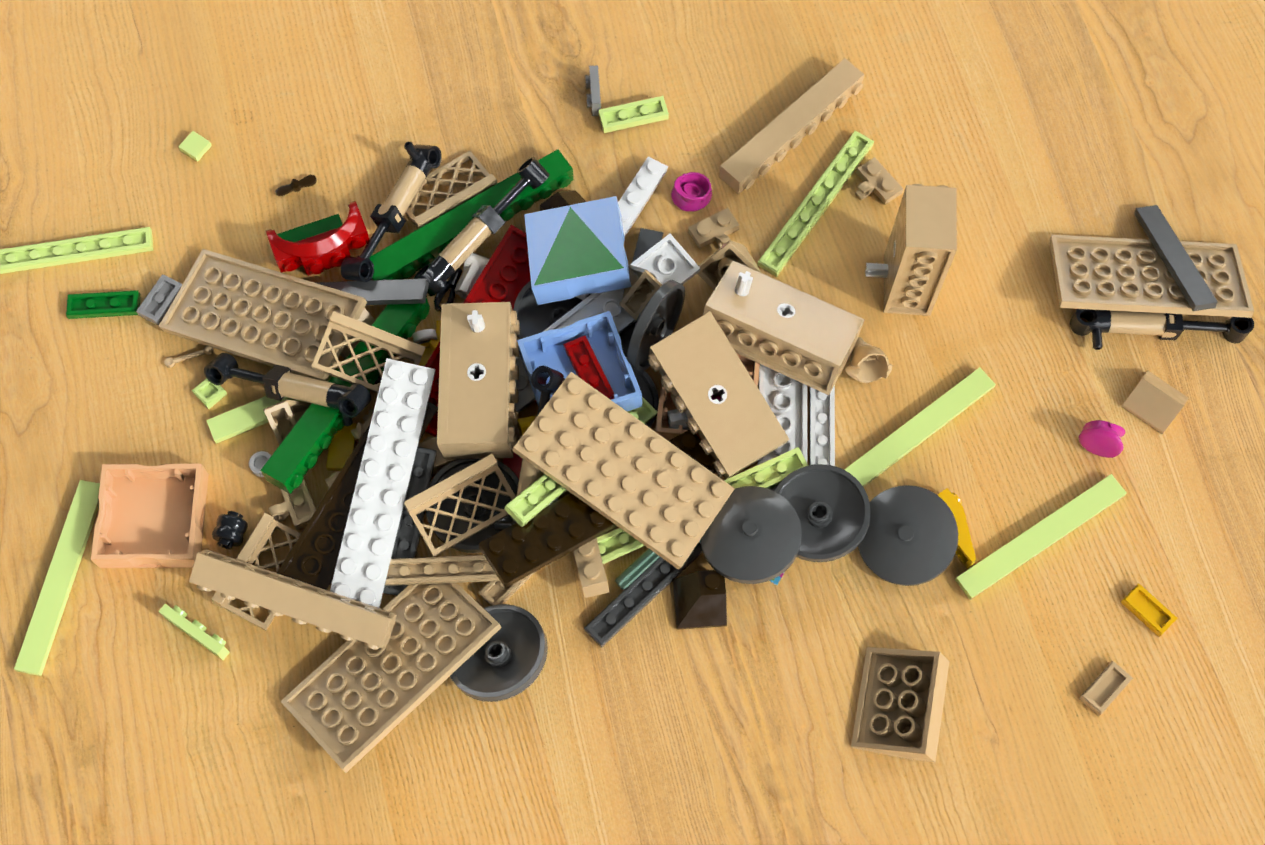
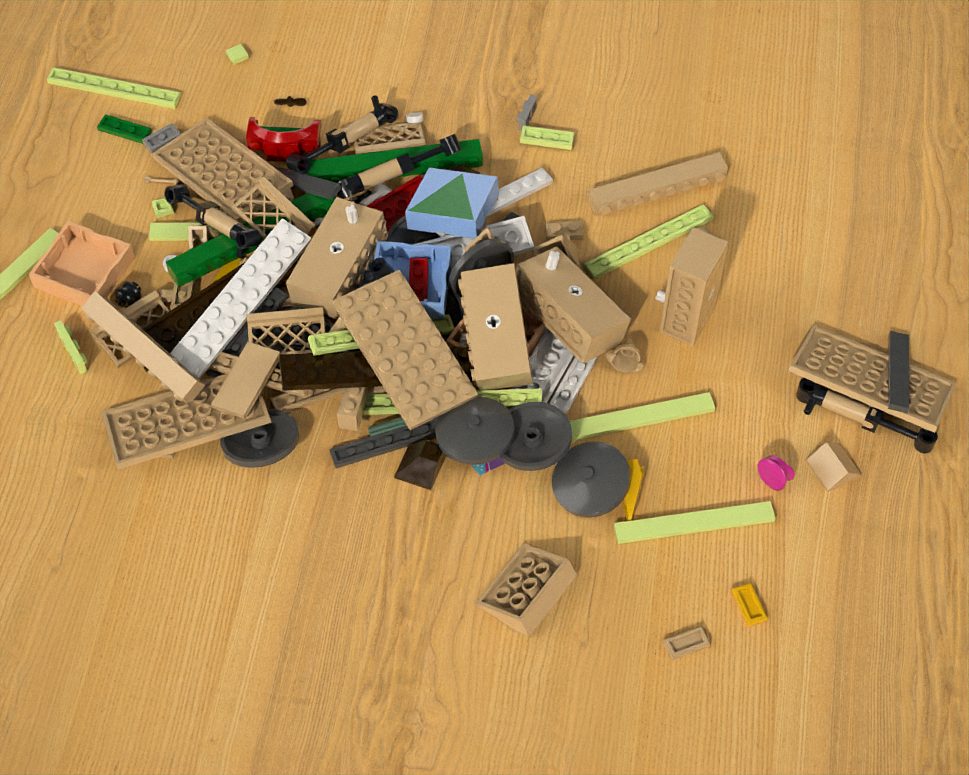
camera: 25 degrees right, 10 degrees down
(446, 587) = (246, 380): none -> tan tile
(462, 148) = (414, 117): none -> white tile
(691, 191) = (561, 201): dark pink piece -> none

